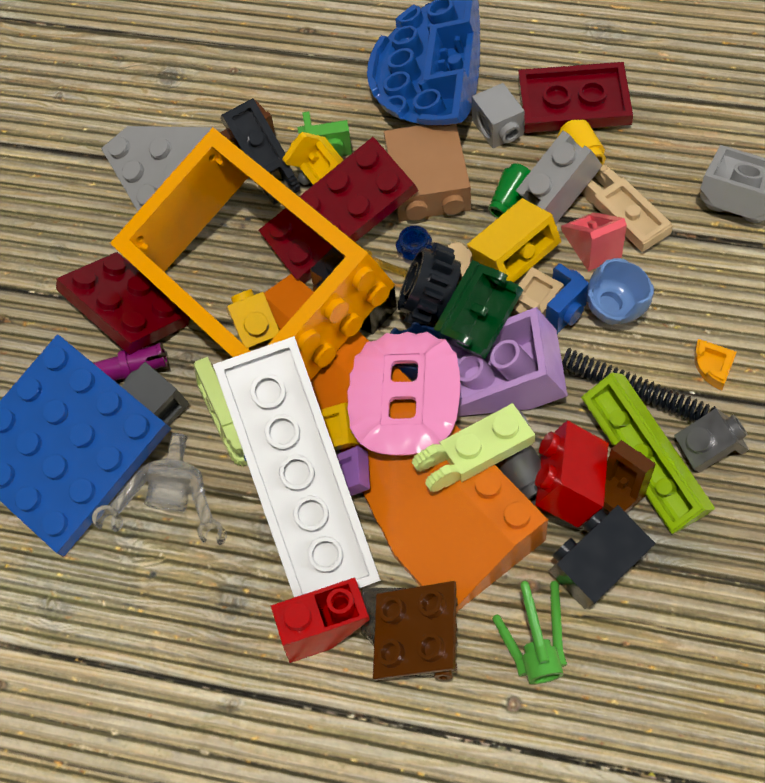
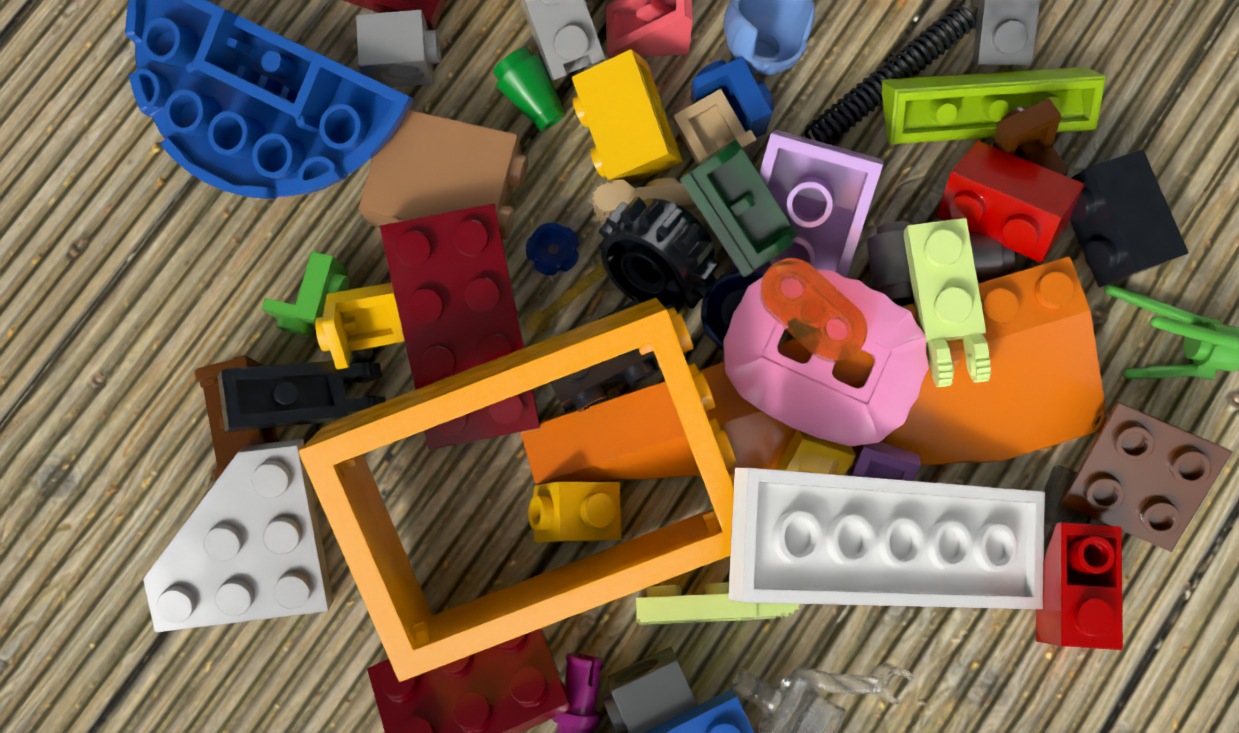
camera: 70 degrees left, 20 degrees up
(426, 361) = (808, 314): none -> clear orange plate

